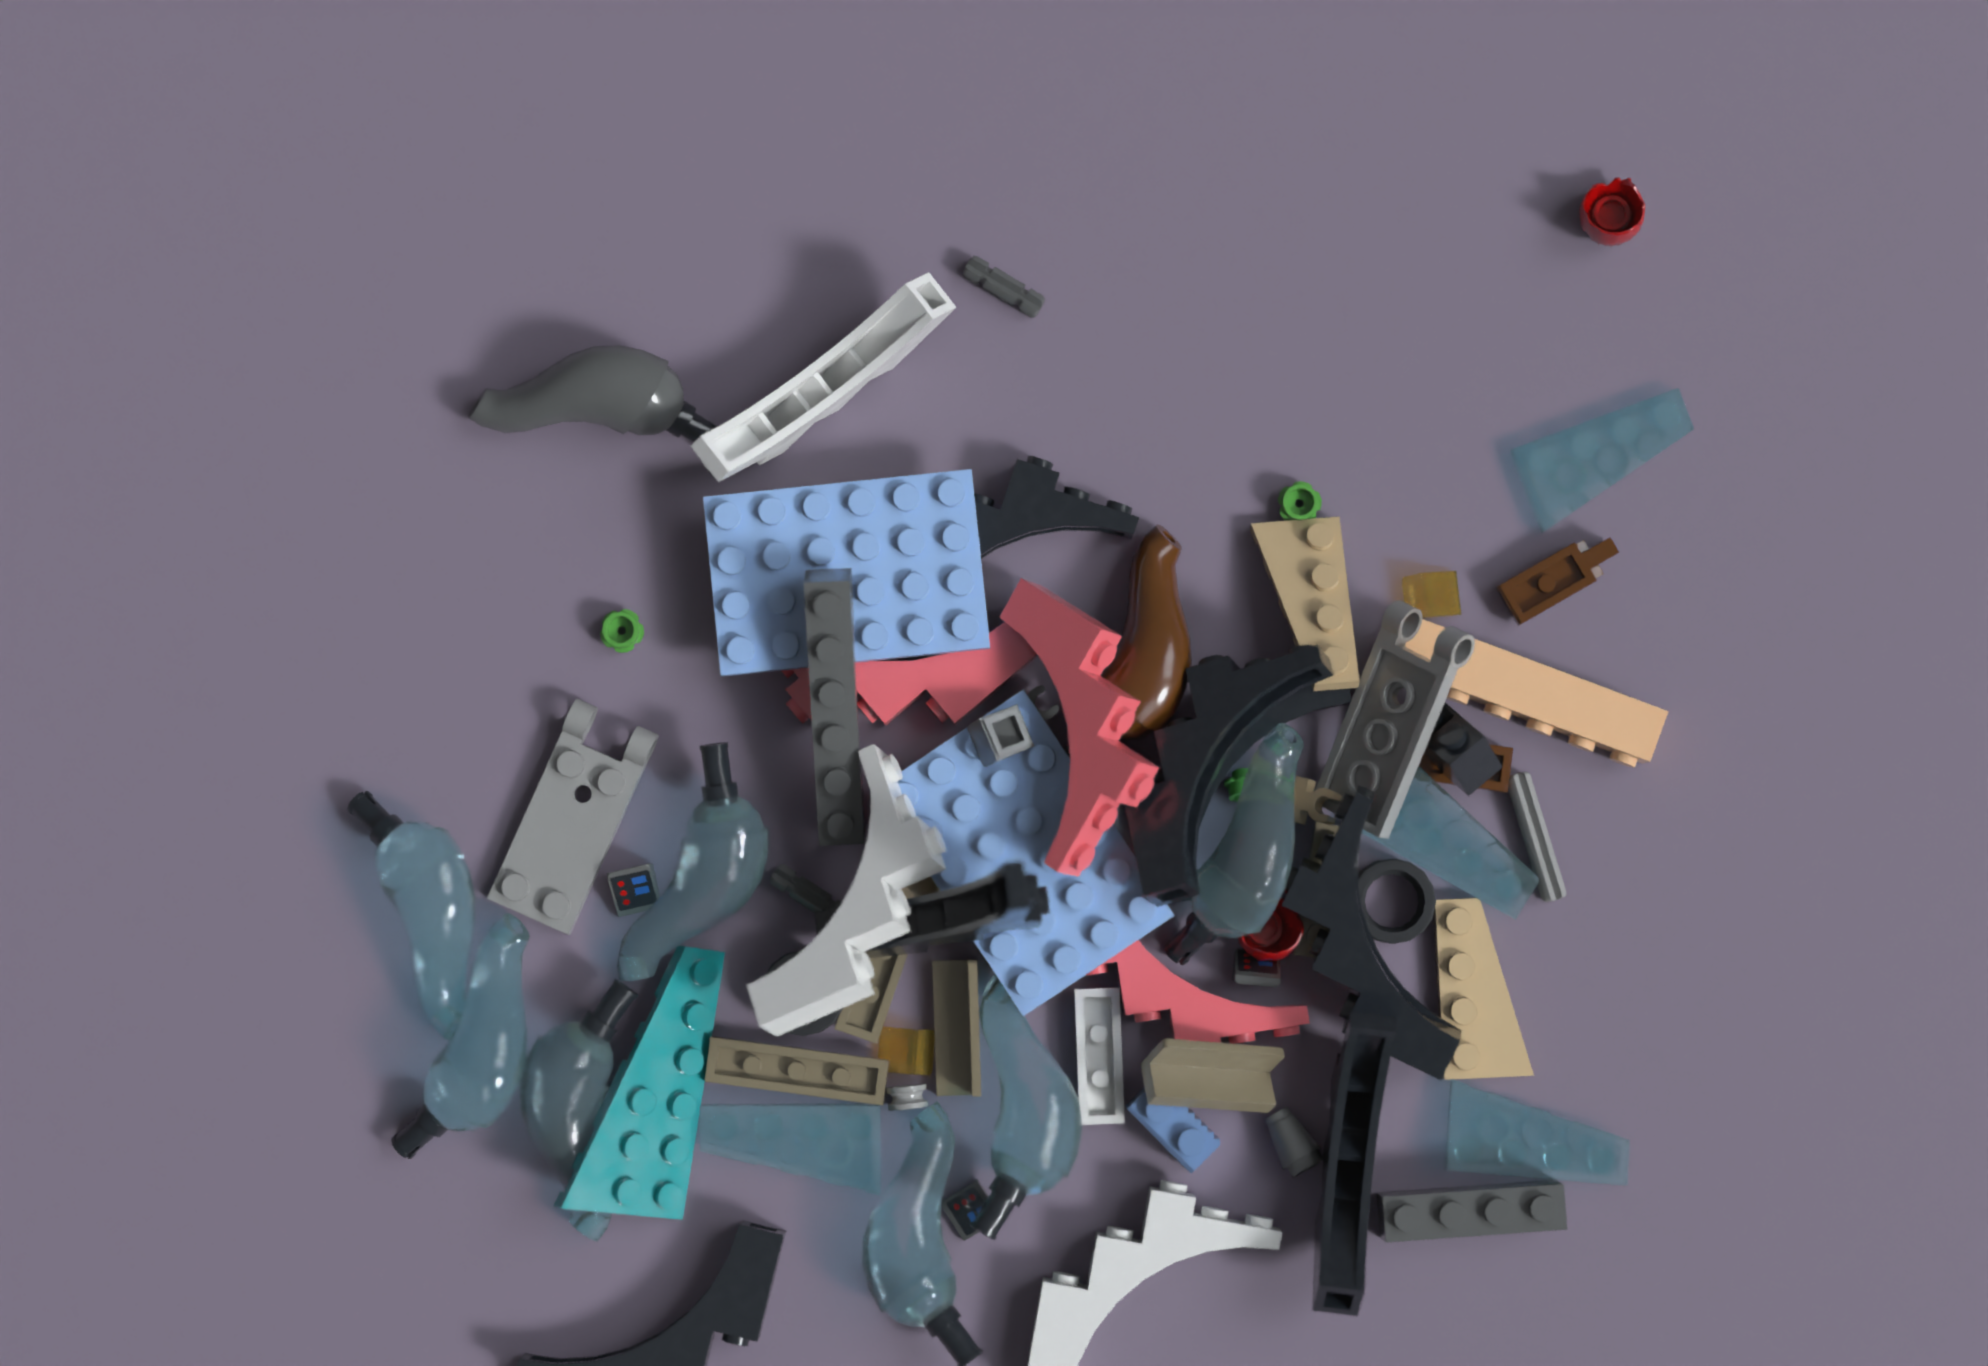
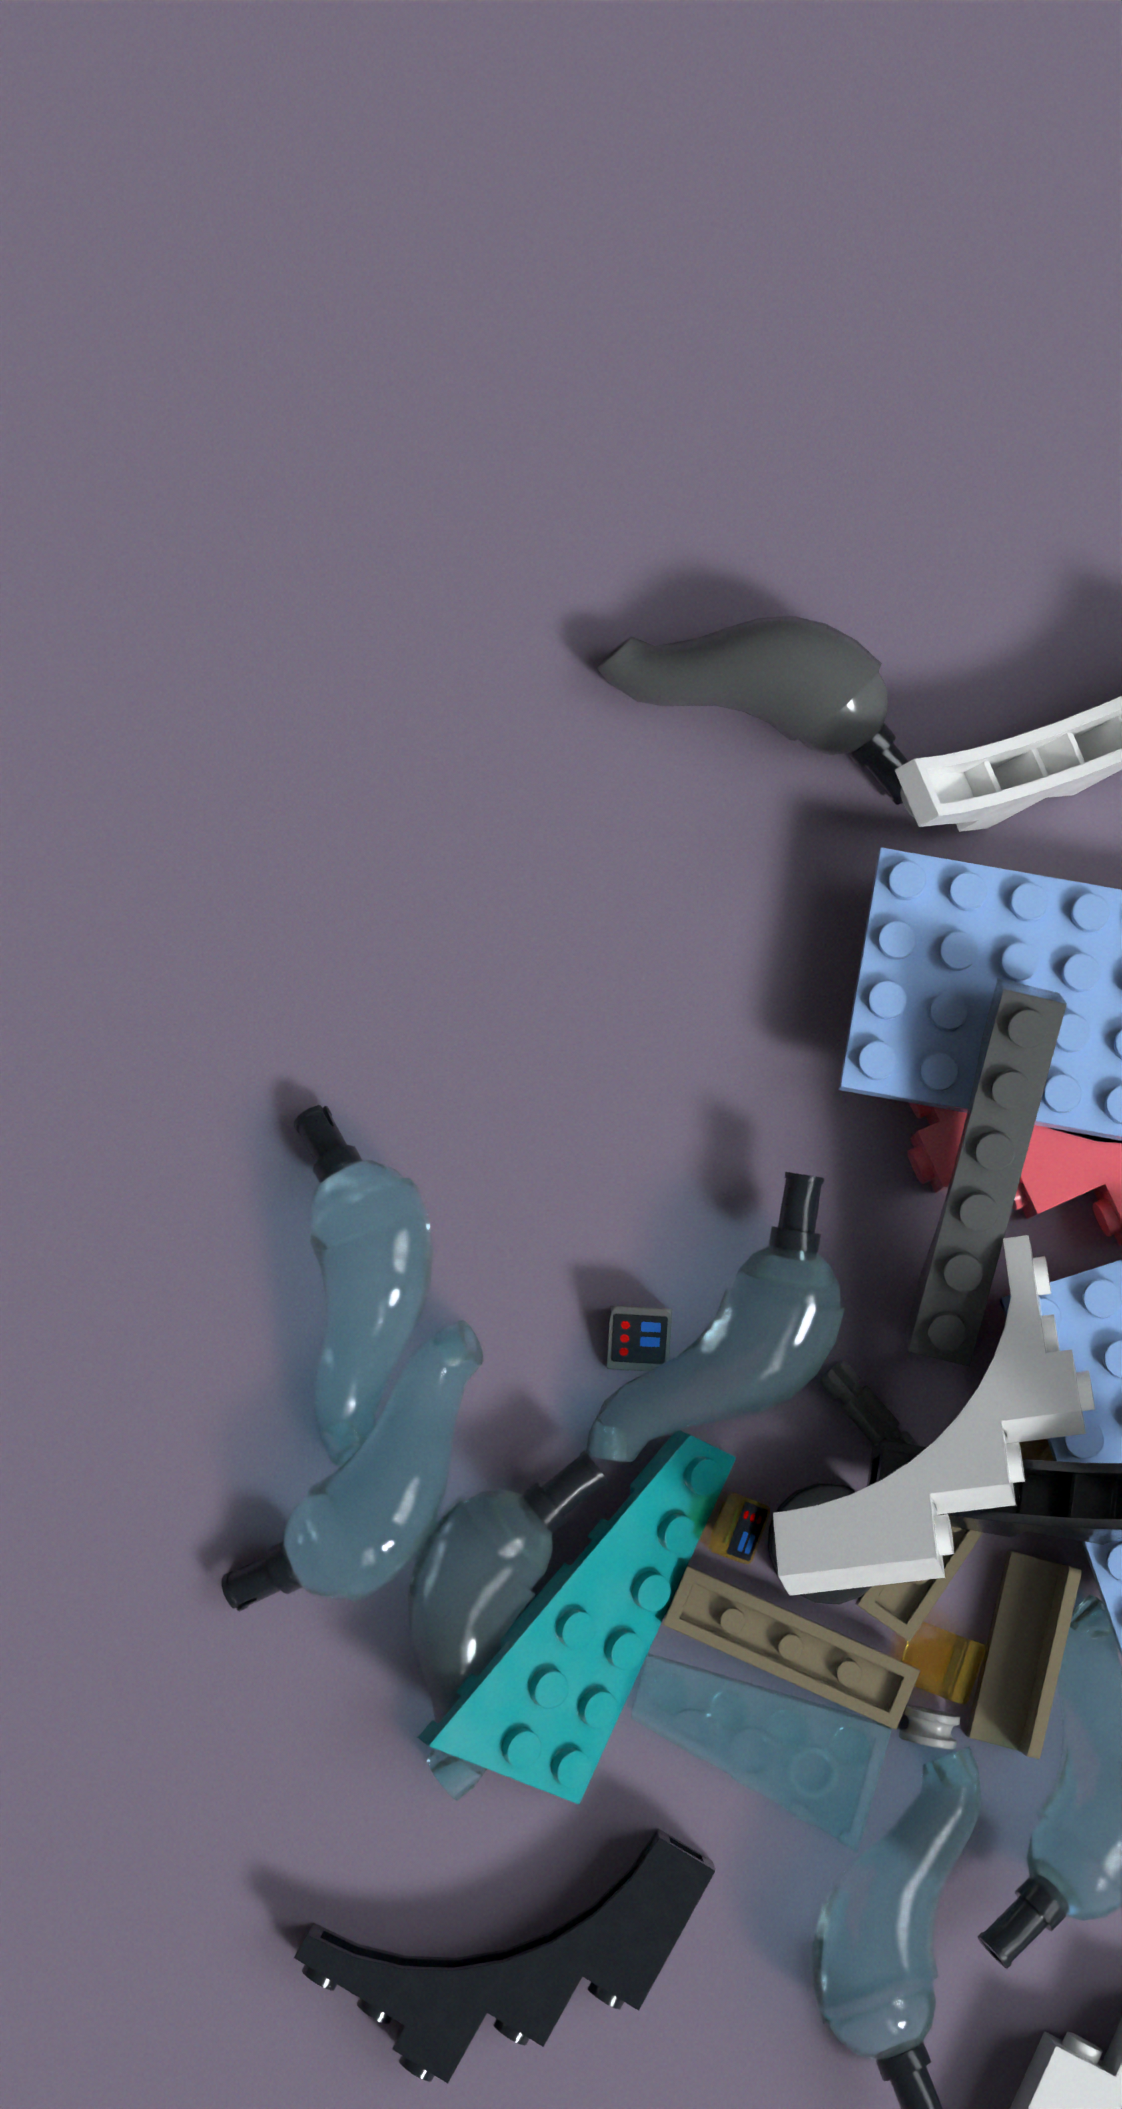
camera: 20 degrees right, 5 degrees down
(566, 840) = (563, 1243): light grey hinge -> none
(611, 624) = (720, 979): bright green plate -> none
(736, 1001) = (738, 1528): none -> slope
(965, 1206) = (971, 1906): slope -> none

